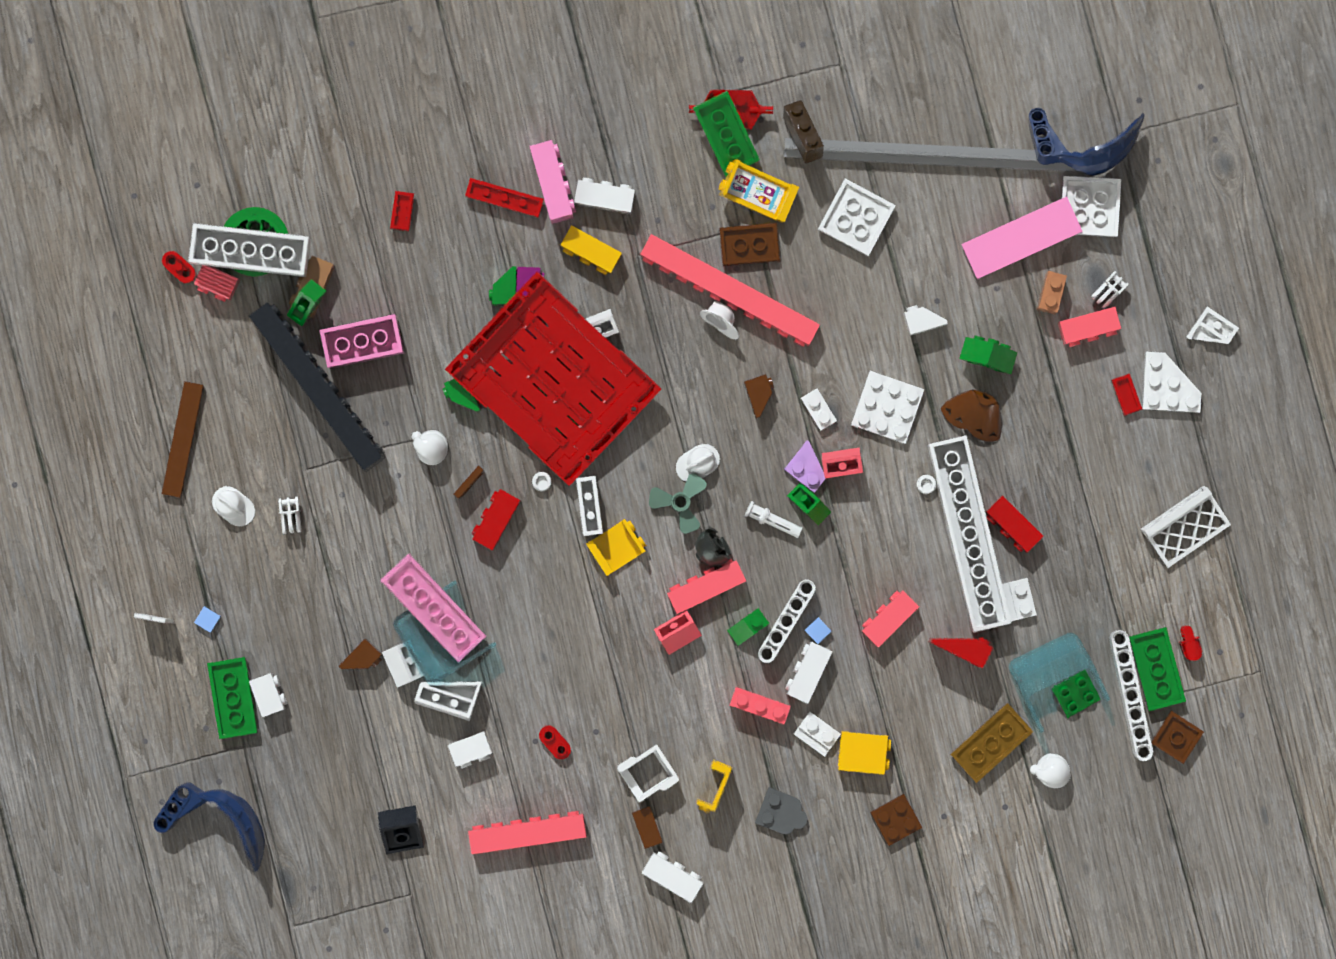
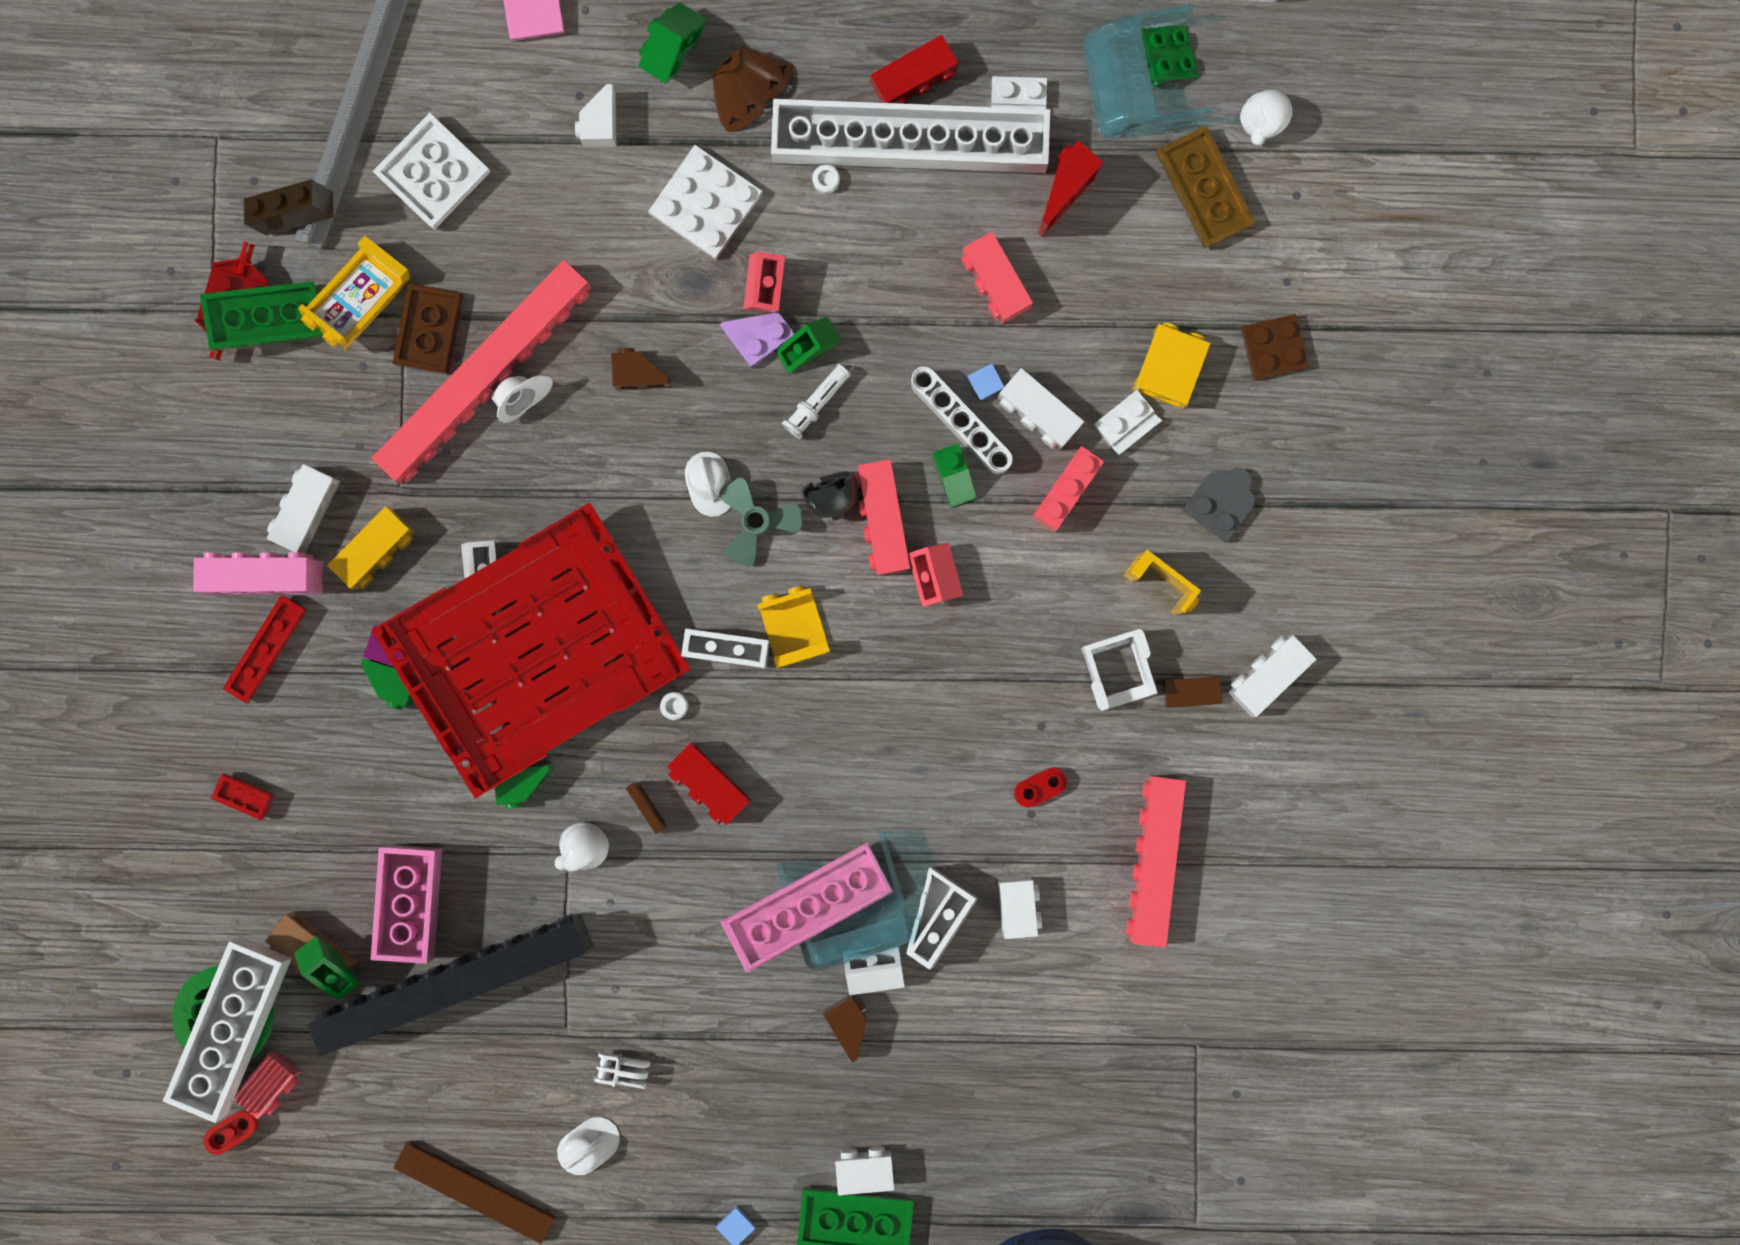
camera: 75 degrees left, 0 degrees up
(400, 829) = (1103, 1036): black slope -> none
(818, 409) = (682, 297): white plate -> none

